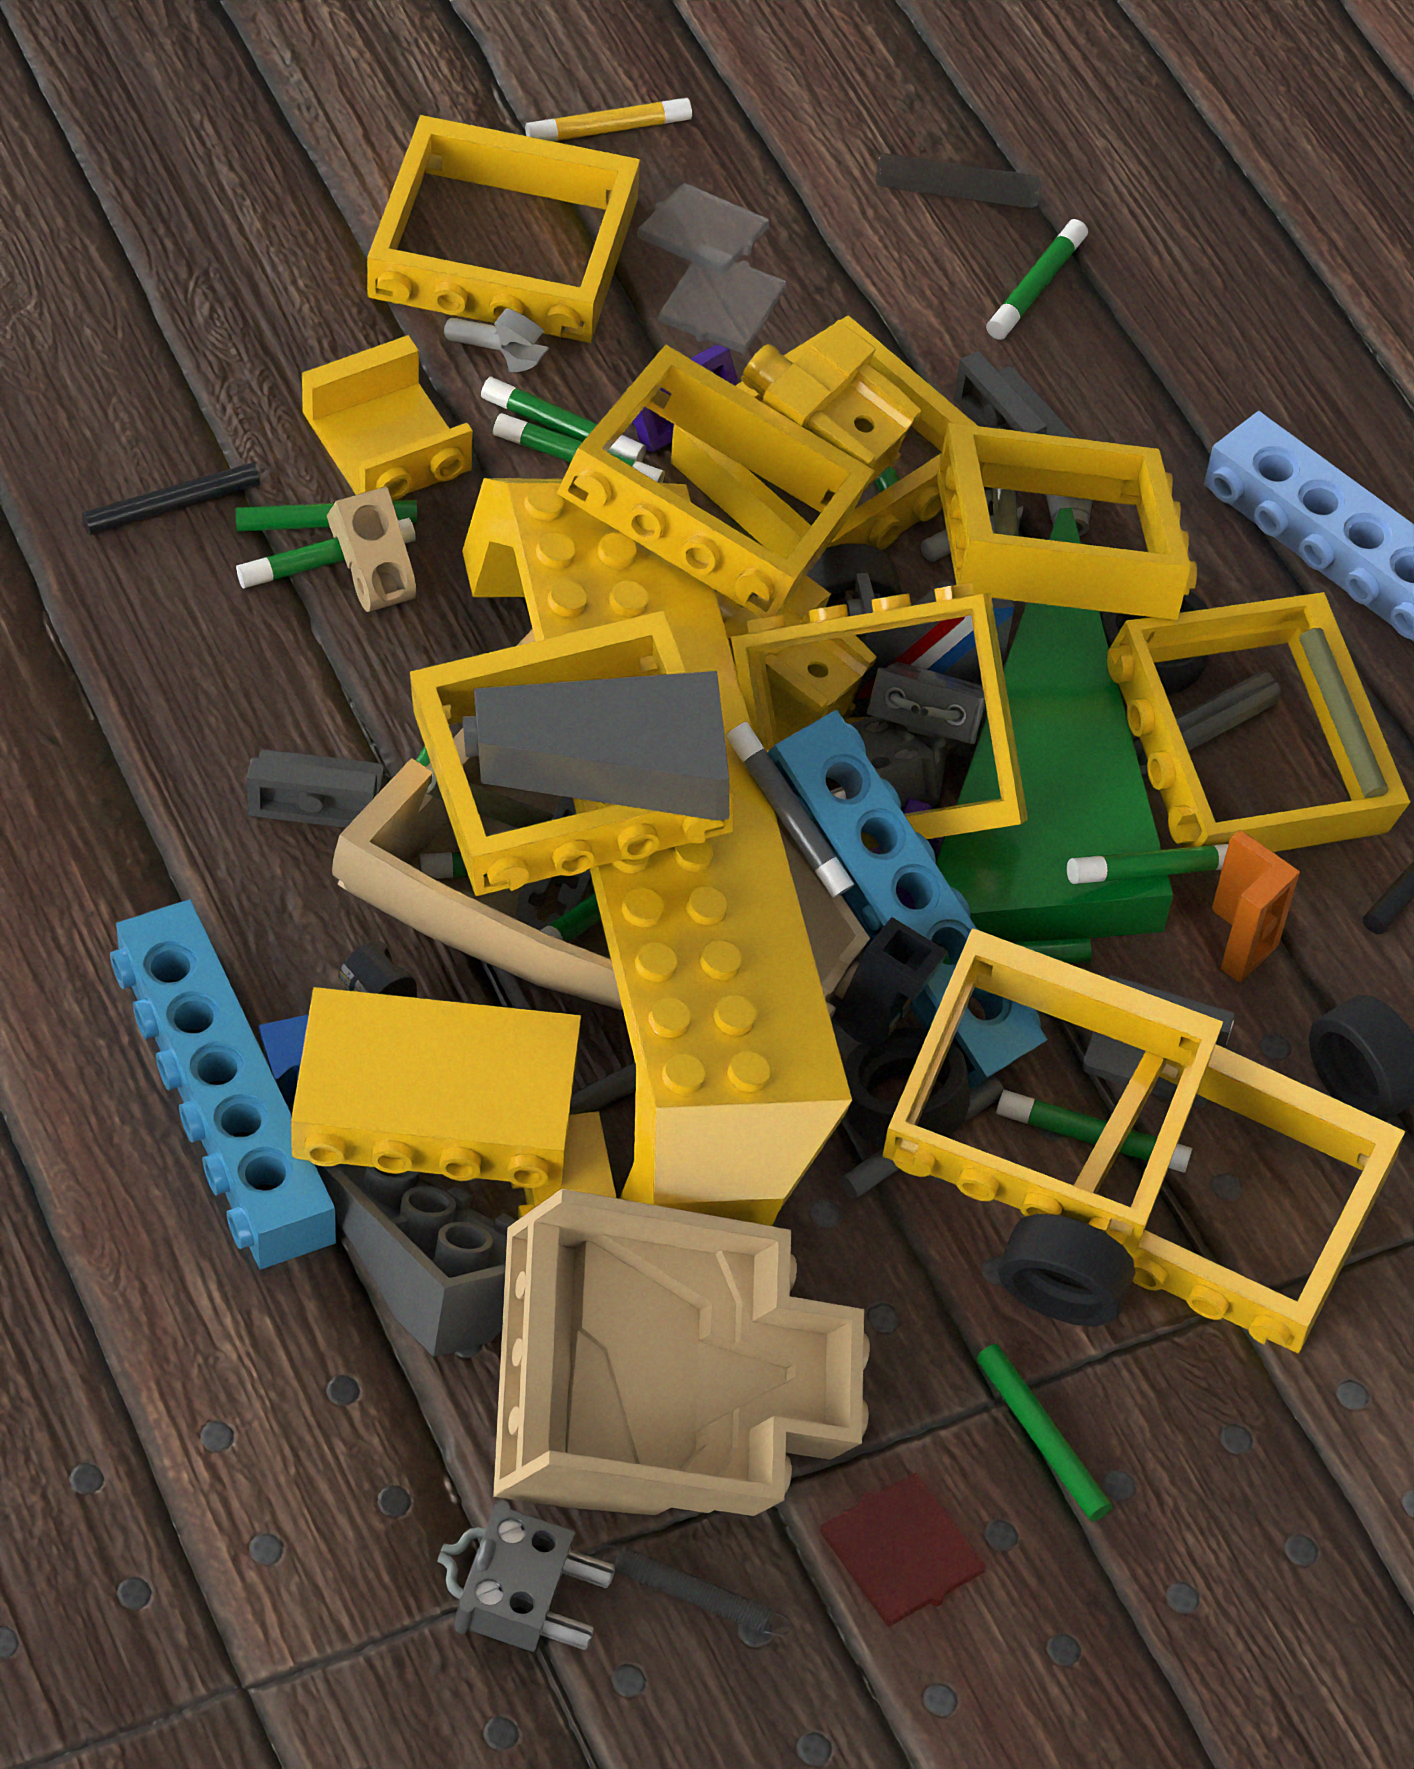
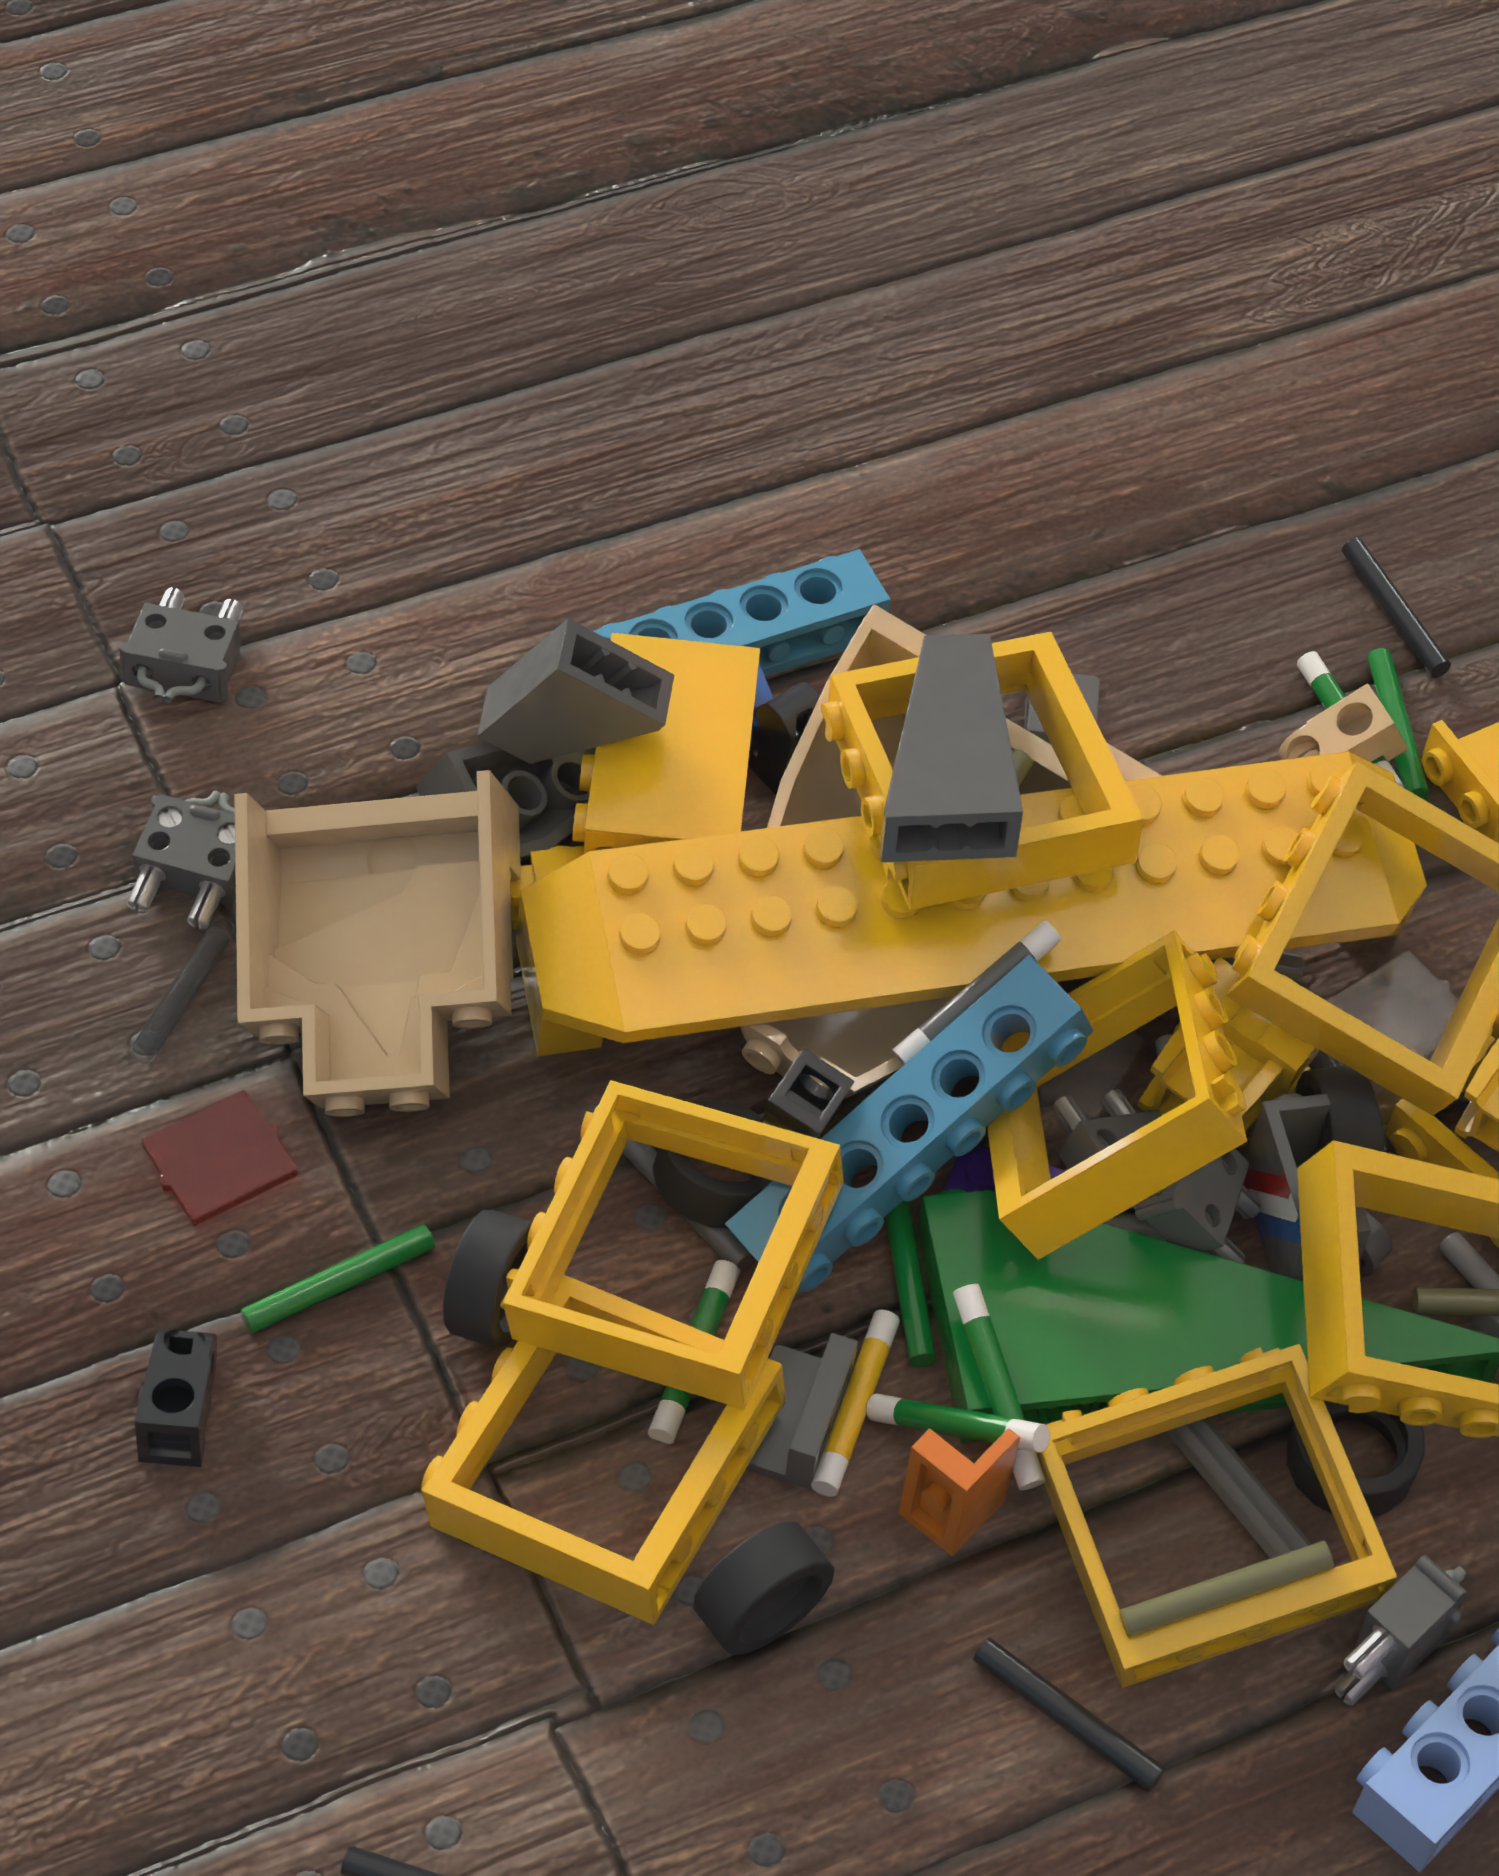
camera: 90 degrees right, 0 degrees up
(217, 1606) = (182, 650): none -> dark grey piece
(413, 1146) = (574, 697): none -> dark grey slope
(1186, 903) = (955, 1421): none -> green bar
(1200, 1558) = (176, 1398): none -> black leg
(1354, 603) = (1403, 1628): none -> dark grey piece

